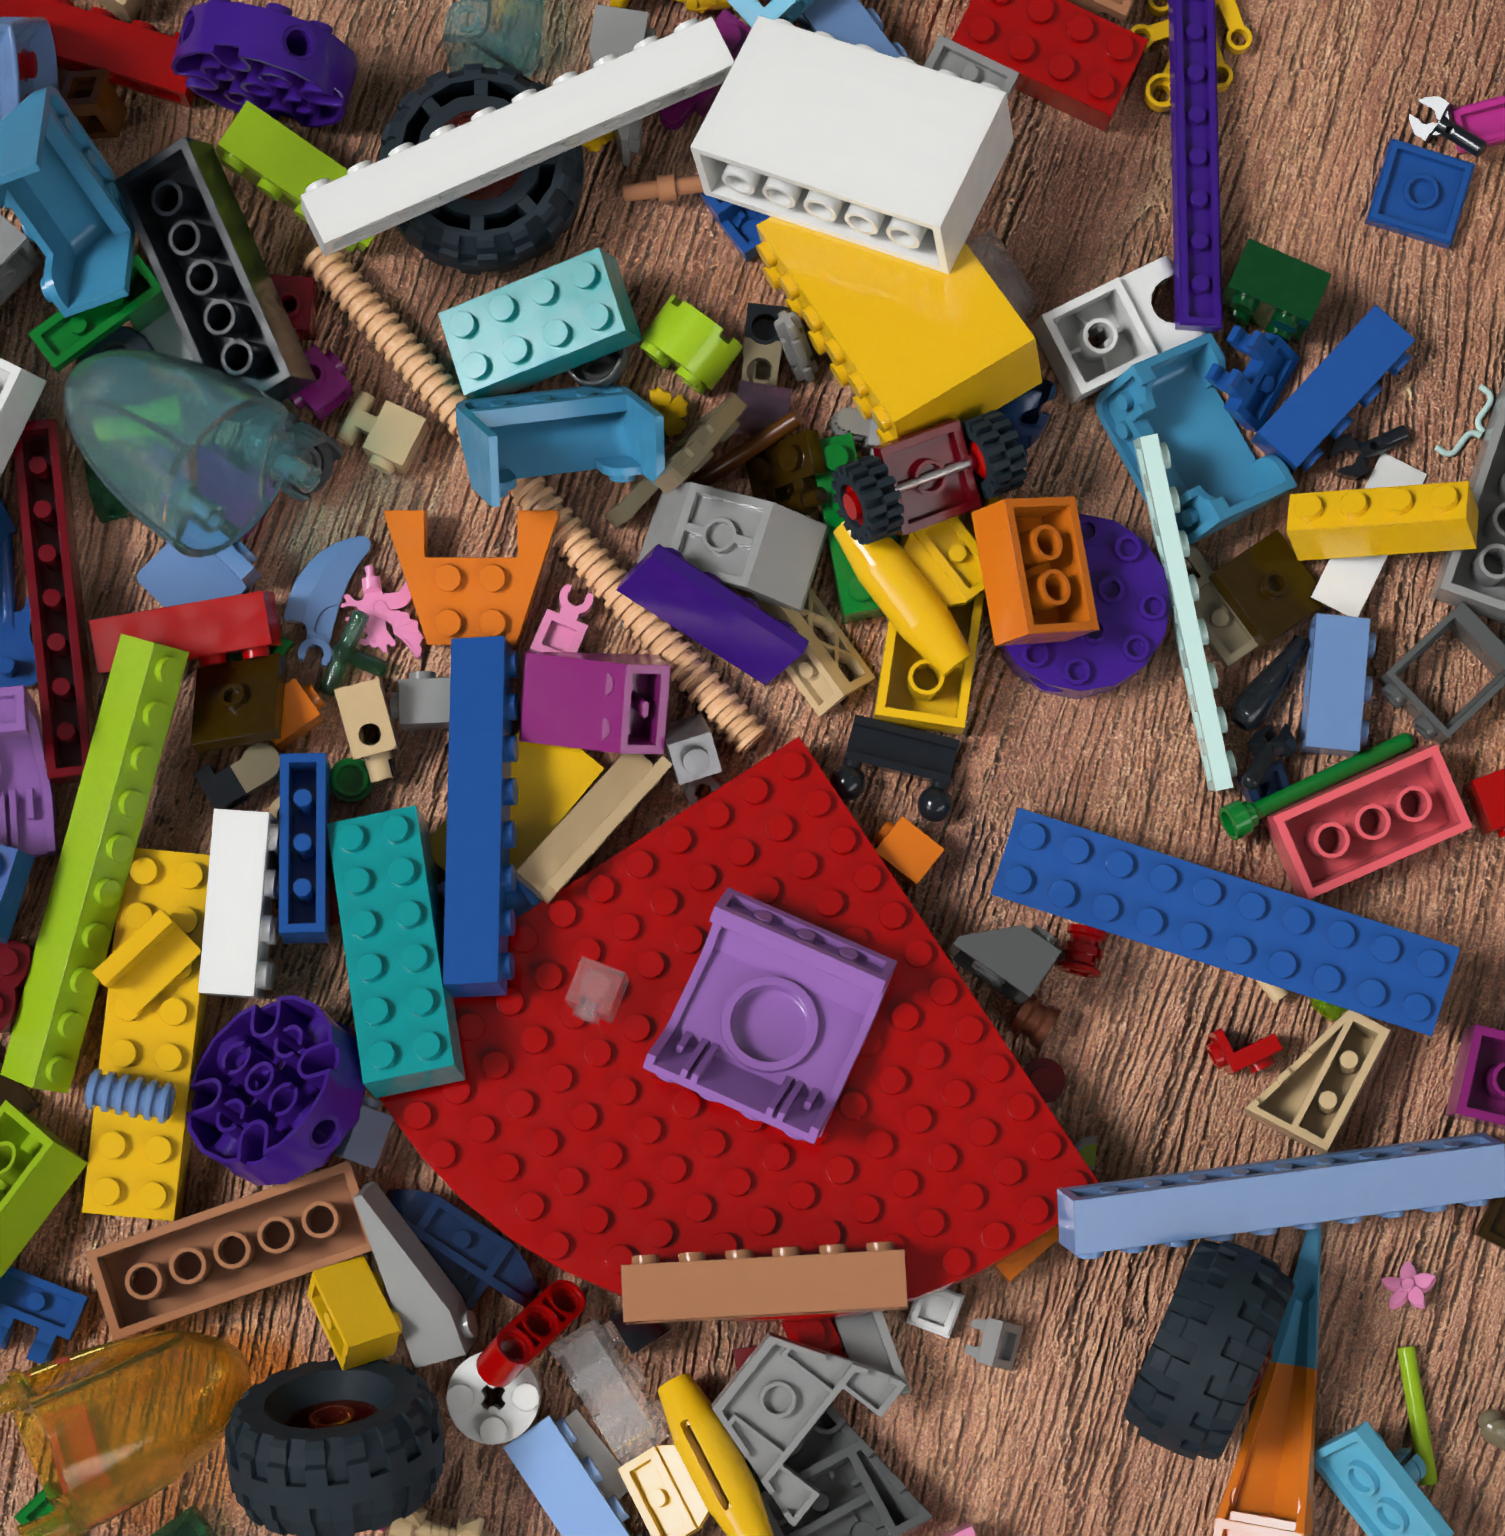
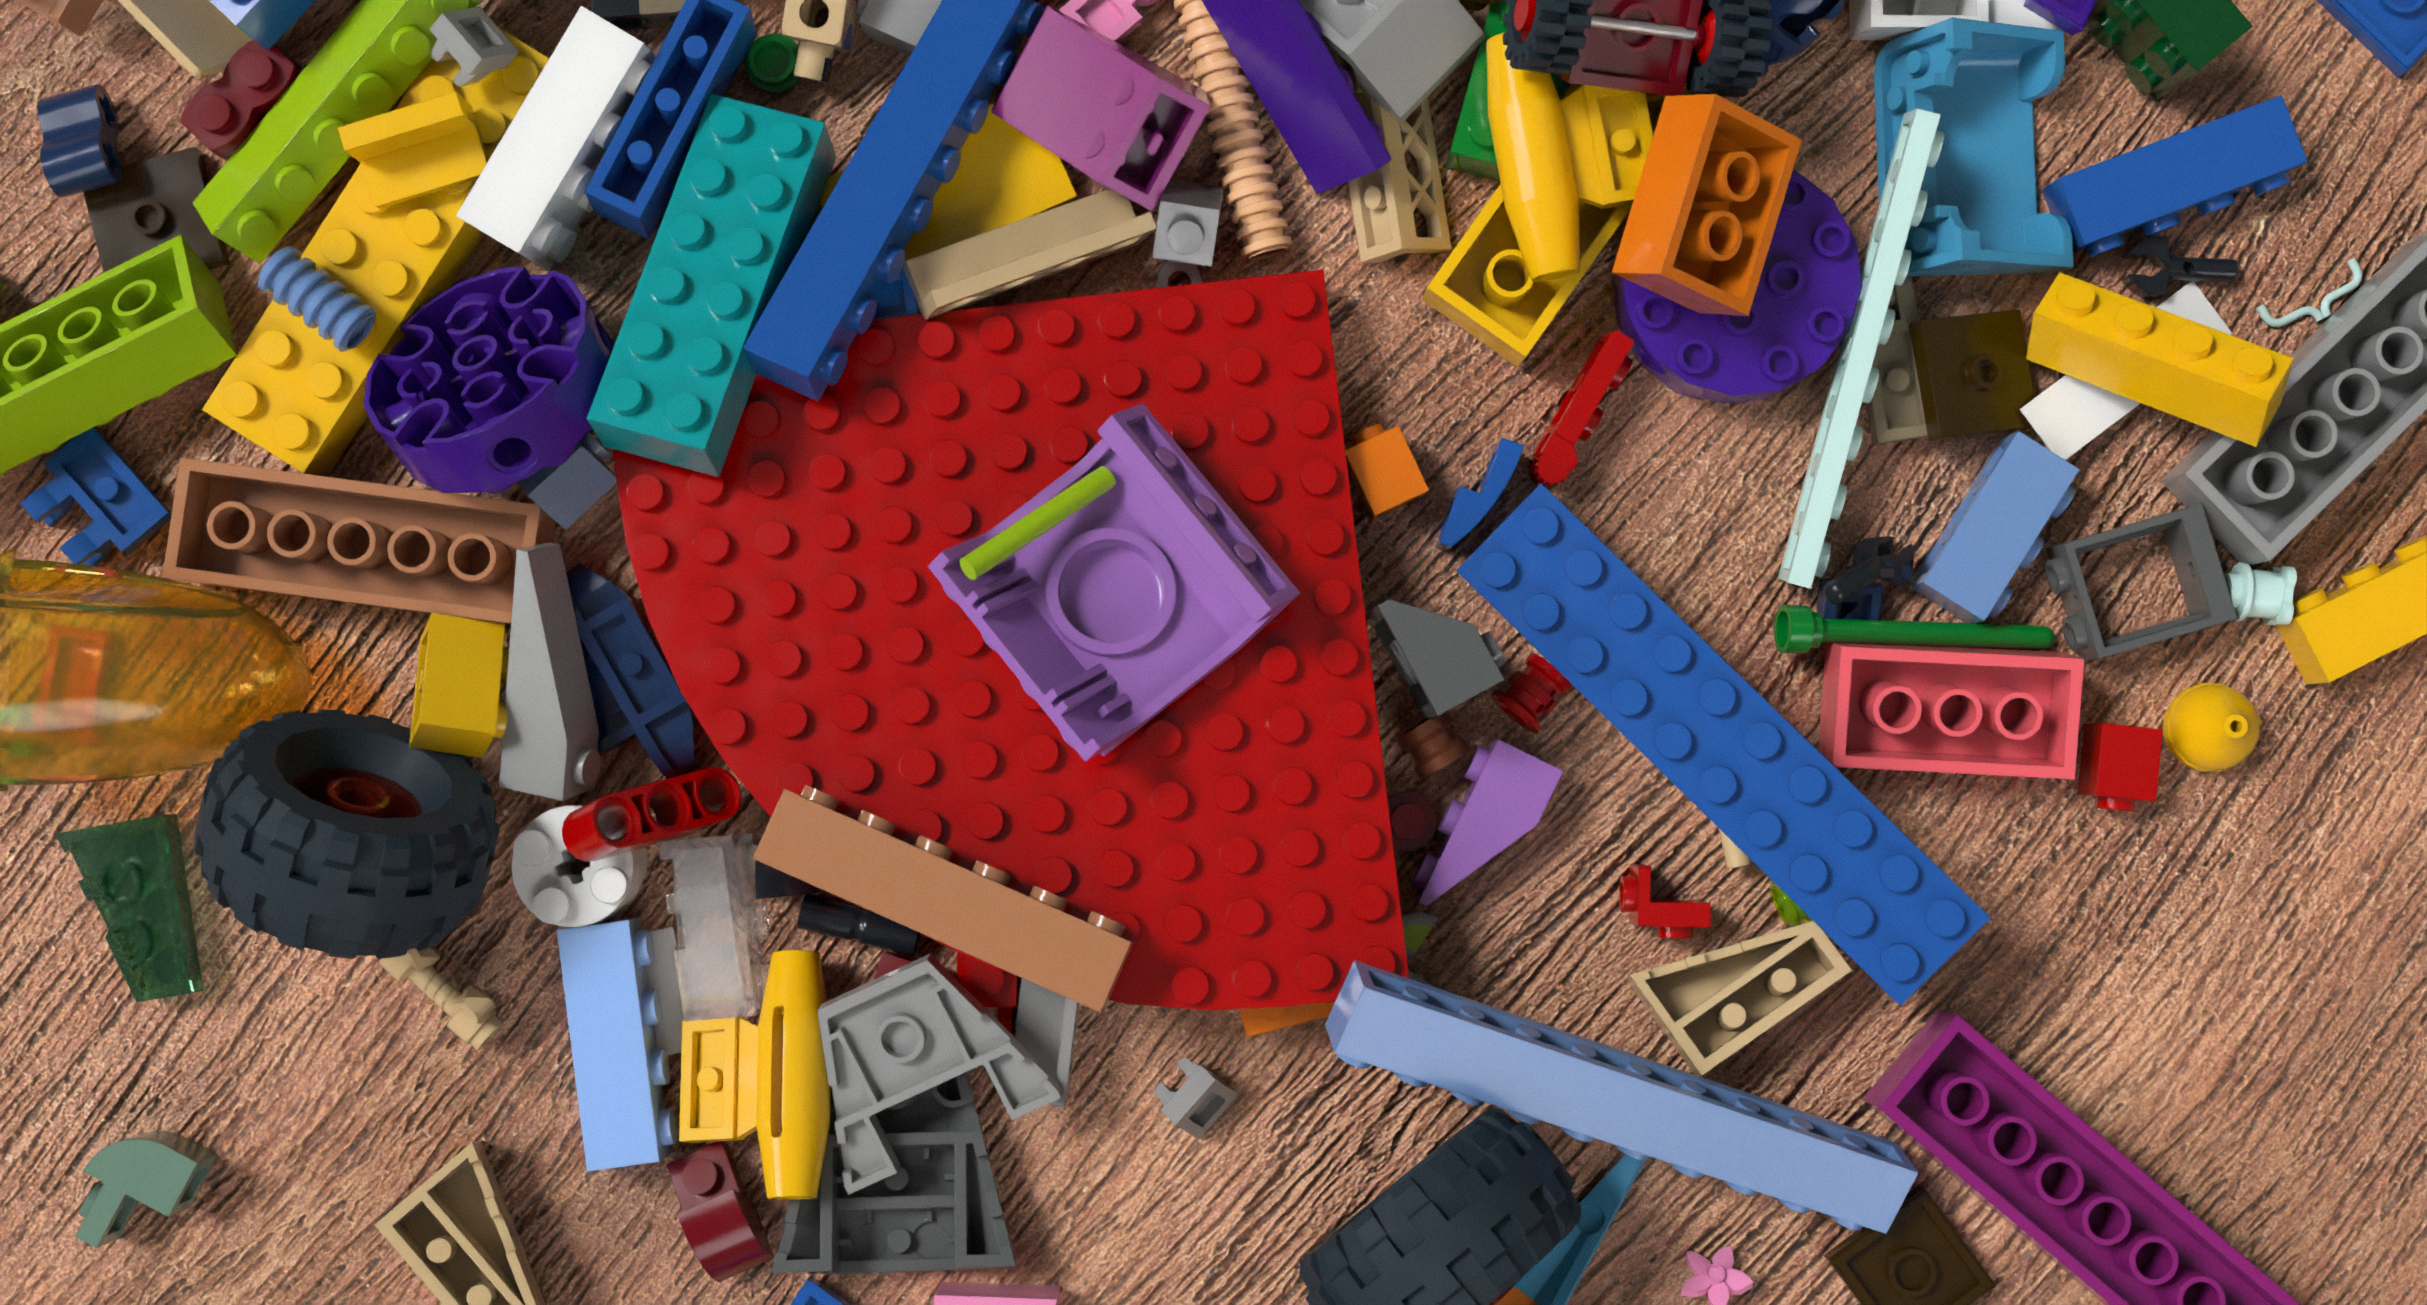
camera: 30 degrees right, 5 degrees up
(151, 869) = (473, 42): none -> light grey tile
(596, 991) = (924, 449): clear brick -> none
(699, 1002) = (1037, 523): none -> lime bar
(700, 1342) = (851, 923): none -> black piece
(901, 752) = (1438, 352): black gear -> none
(936, 1312) = (1145, 1028): white tile -> none
(977, 847) = (1470, 507): none -> blue slope
(1017, 745) = (1578, 411): none -> red hinge
(1100, 1038) = (1498, 808): none -> medium lavender slope
(1262, 381) = (2088, 125): blue plate -> none
(1263, 691) = (1903, 494): black piece -> none

